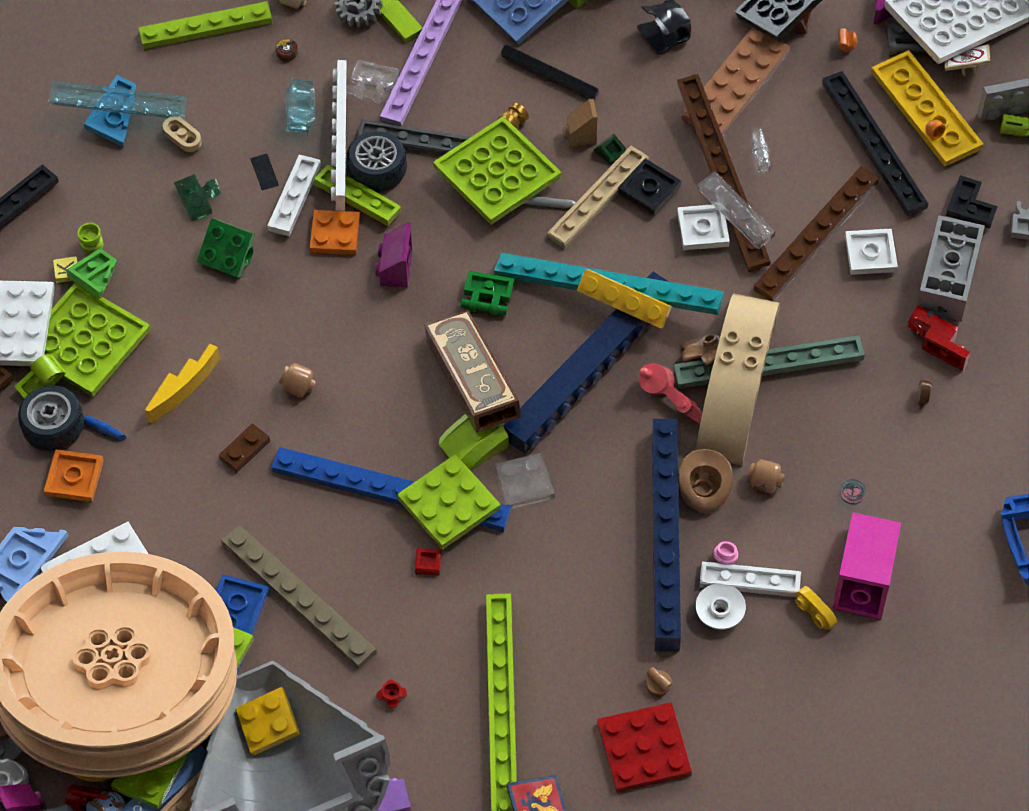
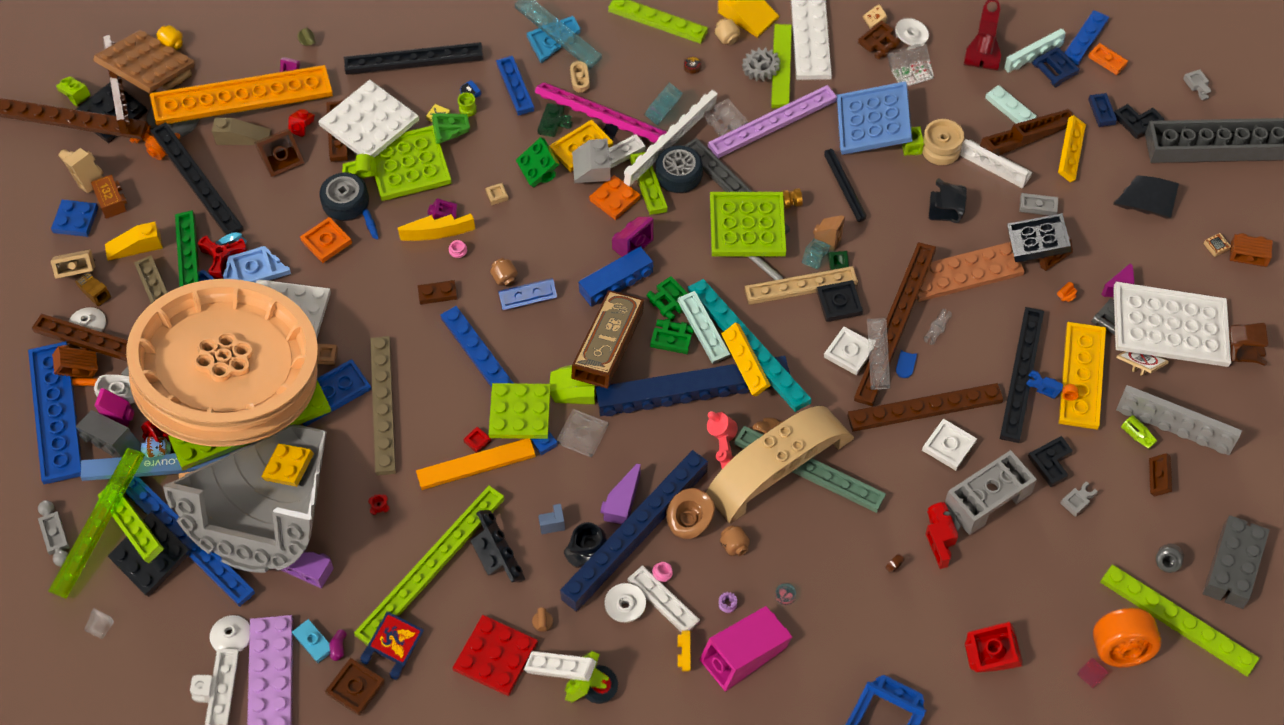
camera: 40 degrees right, 0 degrees up
(74, 220) = (470, 87): none -> tile
(121, 186) = (515, 85): none -> blue plate
(169, 362) = (442, 208): none -> magenta bracket
(209, 309) = (496, 194): none -> tan tile
(224, 390) = (457, 249): none -> bright pink plate
(233, 157) = (598, 111): none -> dark pink plate
(252, 201) = (566, 145): none -> yellow plate
(286, 209) = (591, 162): none -> light grey slope
(342, 385) = (527, 294): none -> plate
(414, 308) = (616, 276): none -> blue brick
(448, 585) = (475, 463): none -> light orange tile
(525, 333) = (672, 340): none -> green plate
(548, 298) = (703, 327): none -> light aqua plate
(551, 651) = (494, 550): none -> black bracket
(578, 582) = (552, 521): none -> sand blue panel
(585, 156) = (815, 253): none -> clear light blue bracket
(628, 520) = (621, 498): none -> medium lavender slope
(633, 581) = (584, 543): none -> black helmet
(724, 705) = (560, 666): none -> white tile
(757, 699) = (600, 687): none -> plate
(762, 205) = (905, 364): none -> blue piece
(808, 530) = (732, 598): none -> lavender bush
(908, 139) = (1045, 386): none -> blue plate

